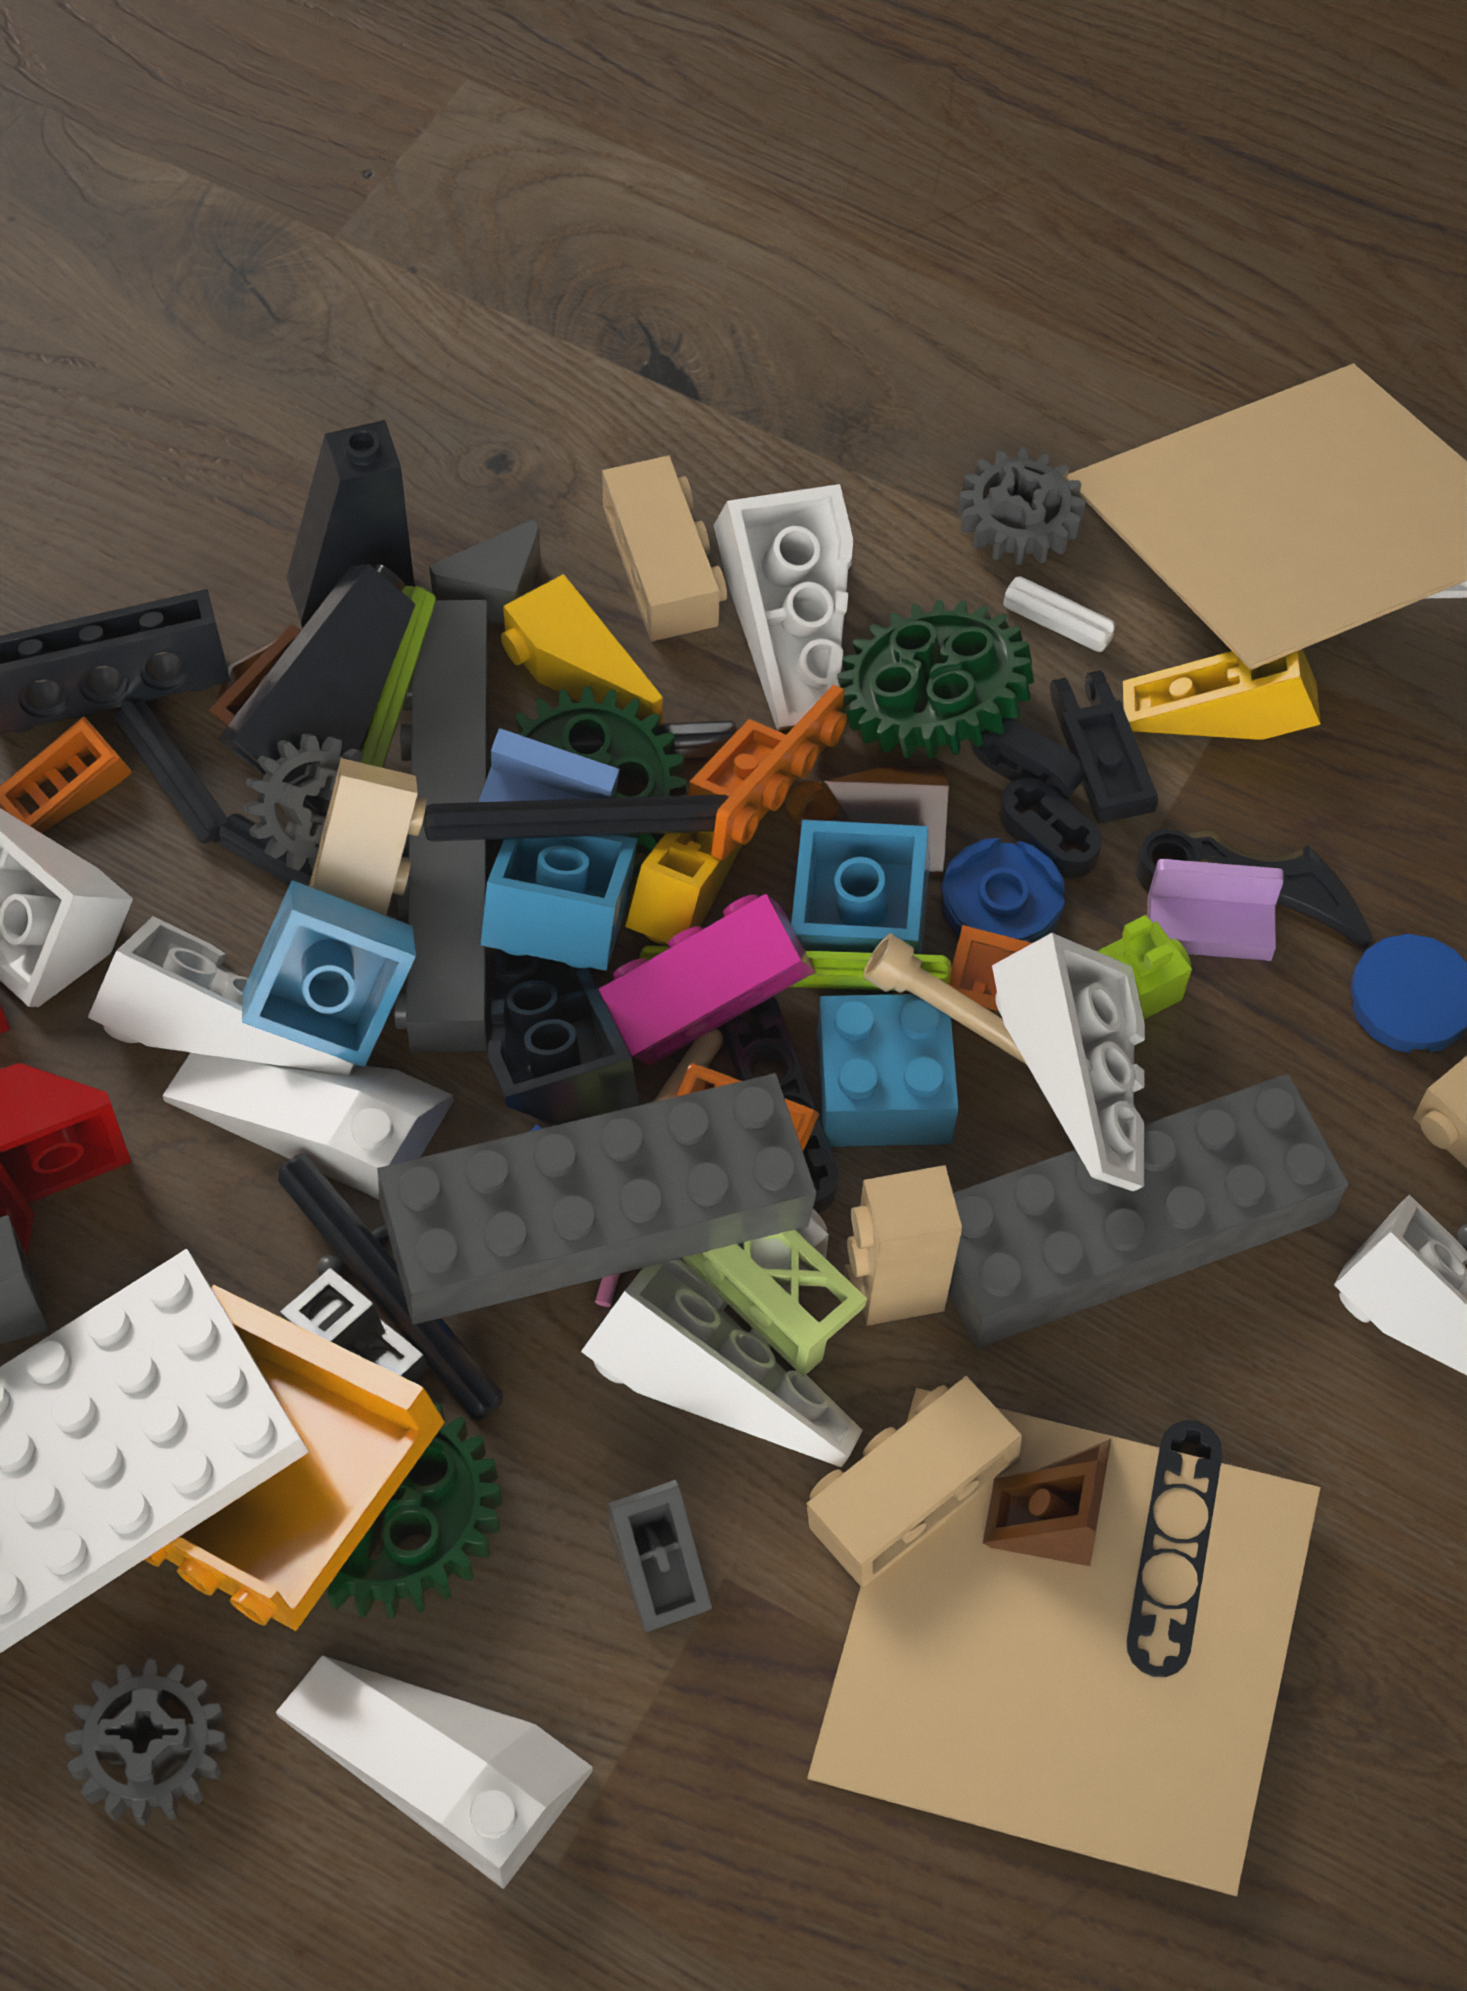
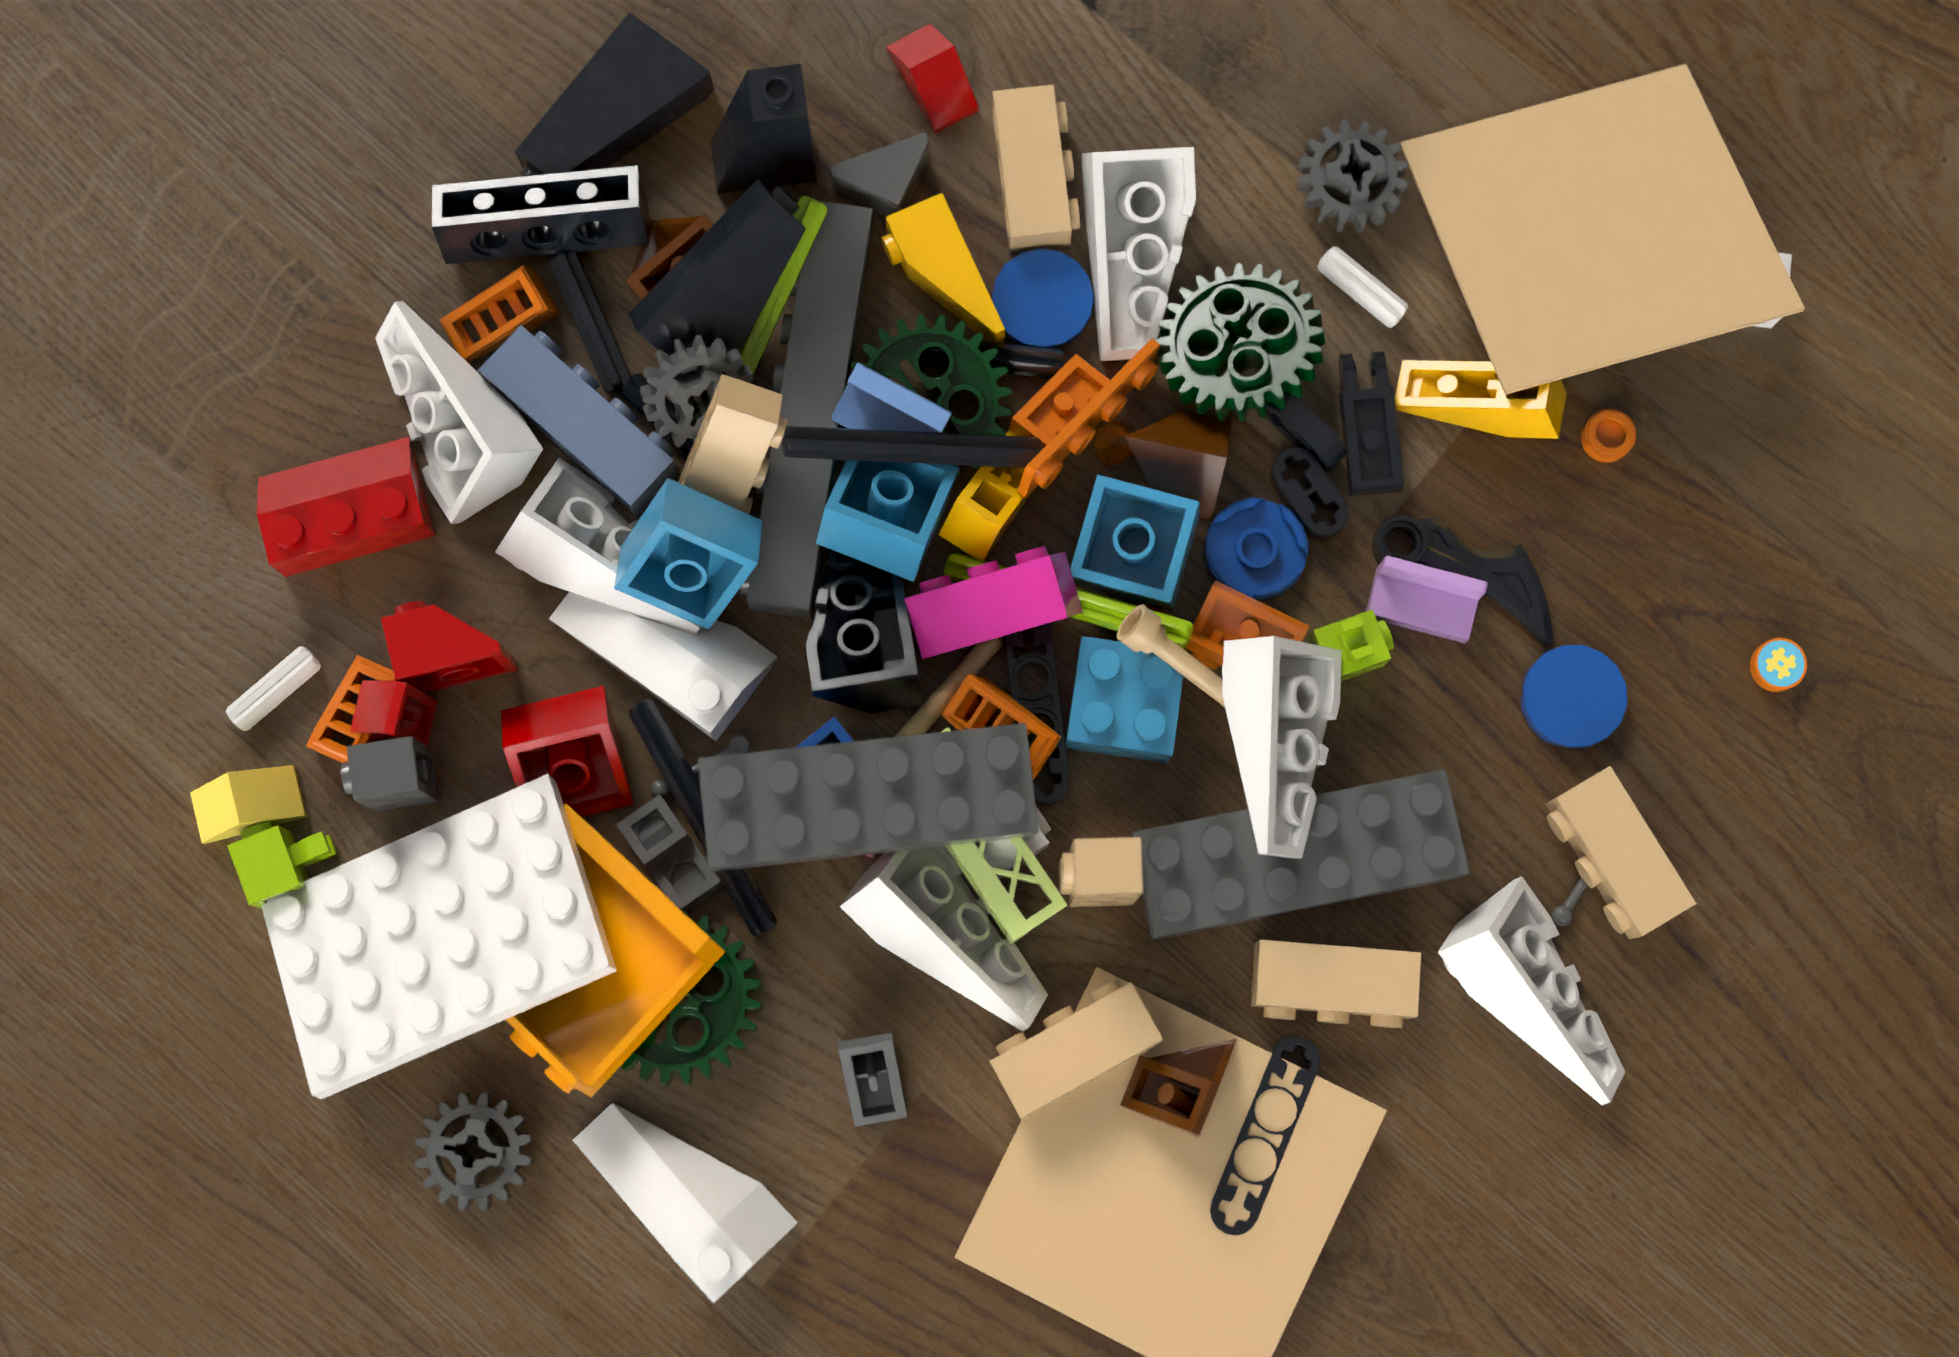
camera: 10 degrees right, 20 degrees up
(171, 867) = (579, 419): none -> sand blue brick
(177, 538) = (615, 102): none -> black slope
(220, 1220) = (574, 744): none -> red slope
(534, 479) = (934, 77): none -> red slope
(701, 673) = (1043, 298): none -> blue tile
(1216, 1347) = (1335, 982): none -> tan brick
(1374, 722) = (1608, 435): none -> orange tile

